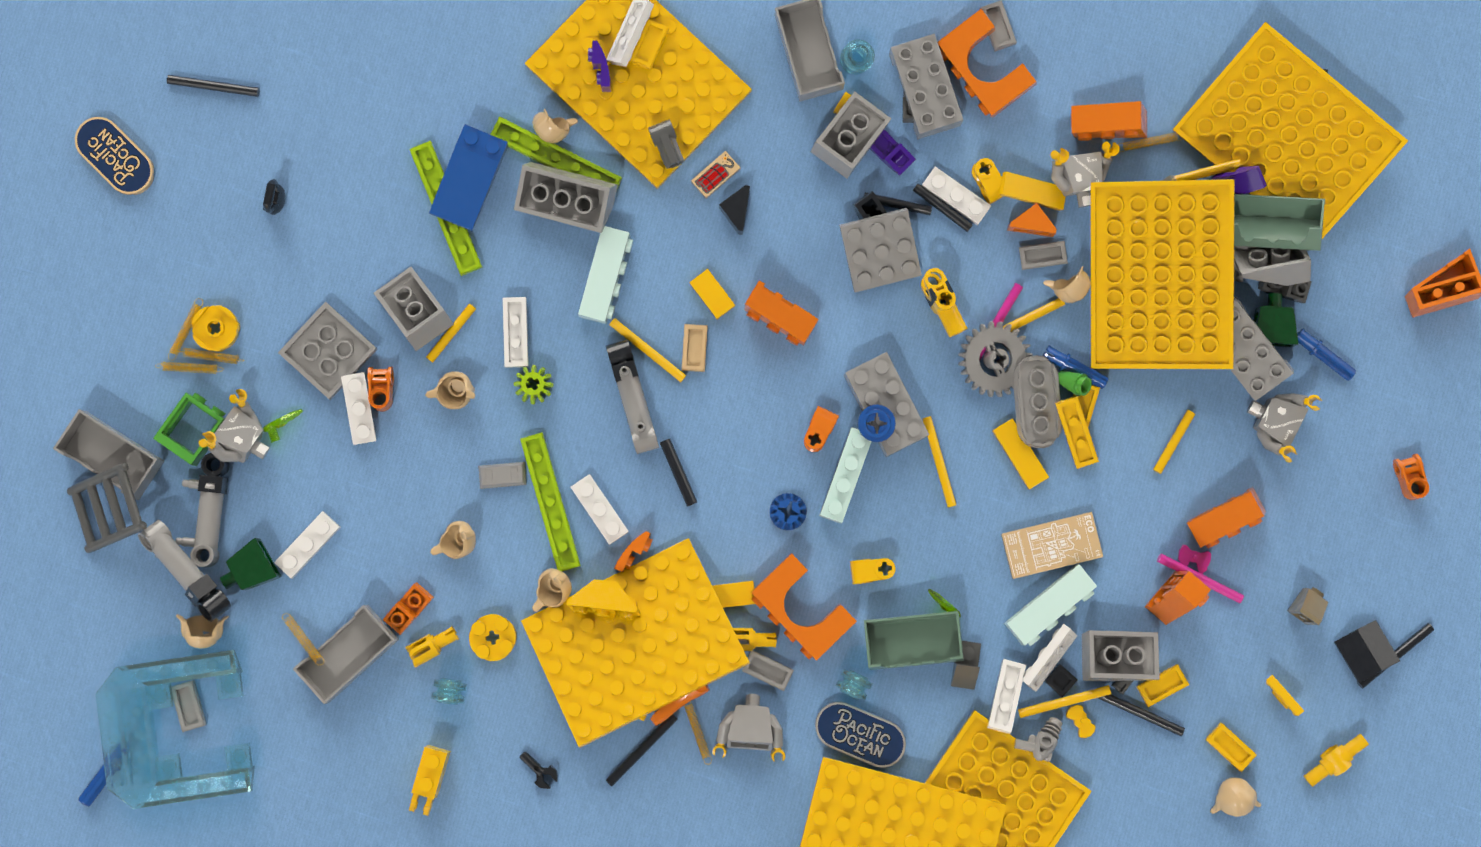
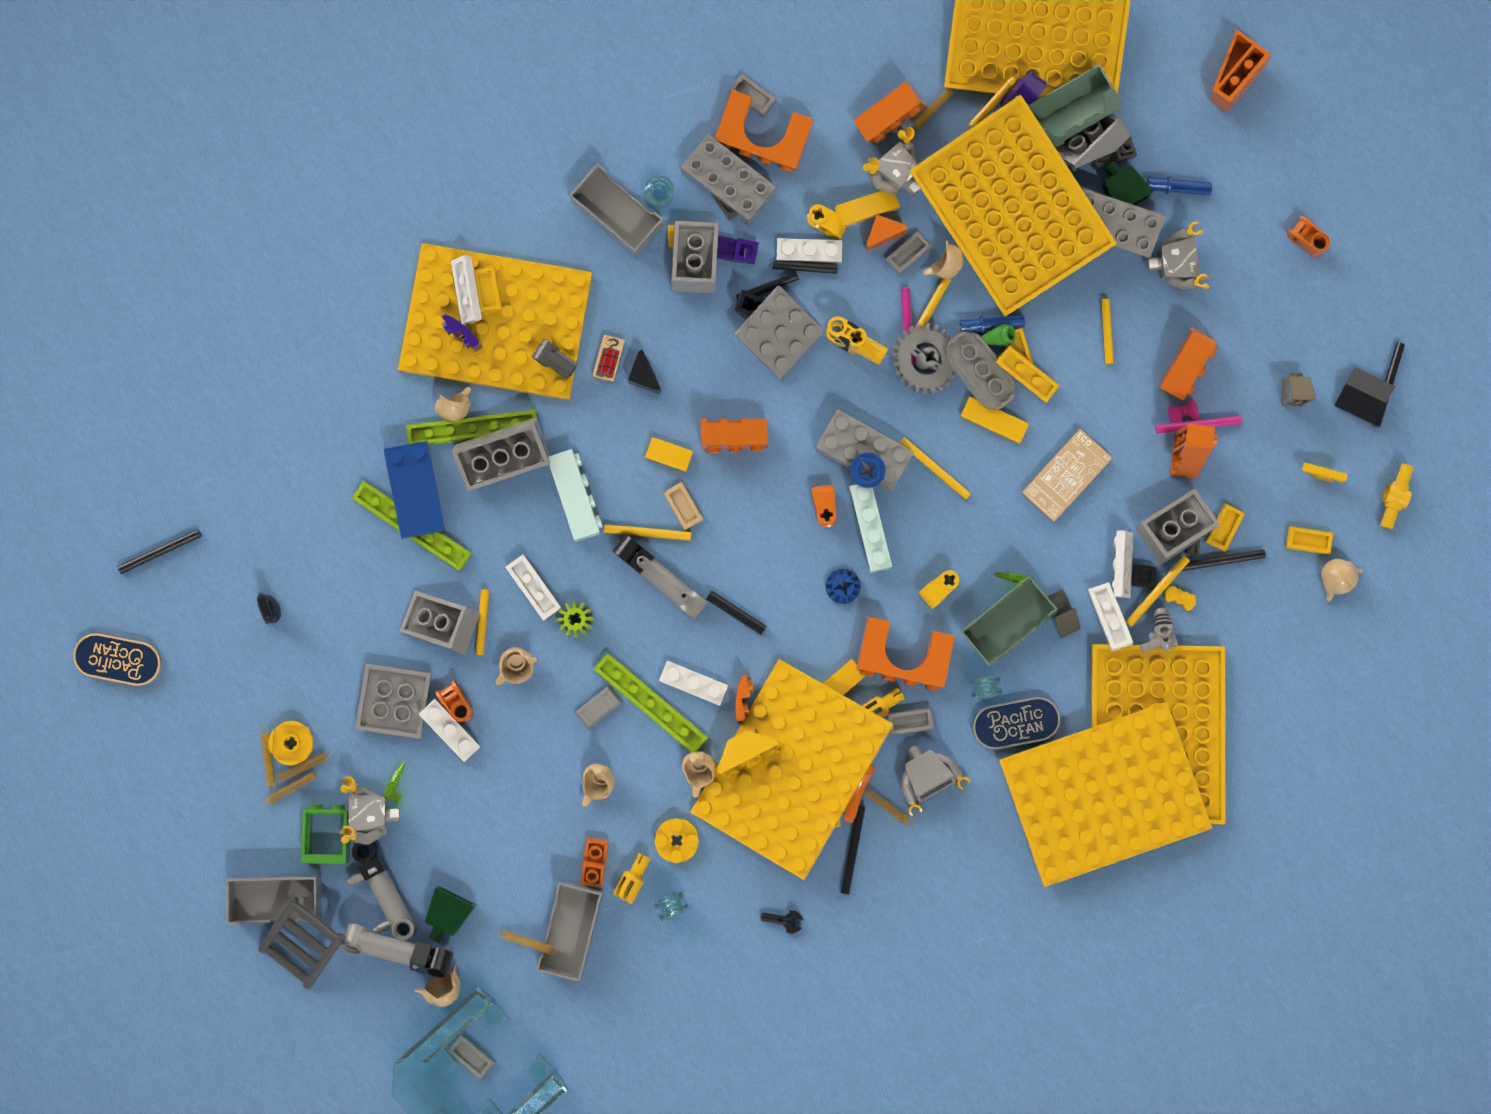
camera: 30 degrees left, 0 degrees up
(307, 545) = (480, 865): white plate -> none
(429, 777) = (700, 983): yellow hinge -> none
(1050, 605) = (1096, 522): light aqua brick -> none

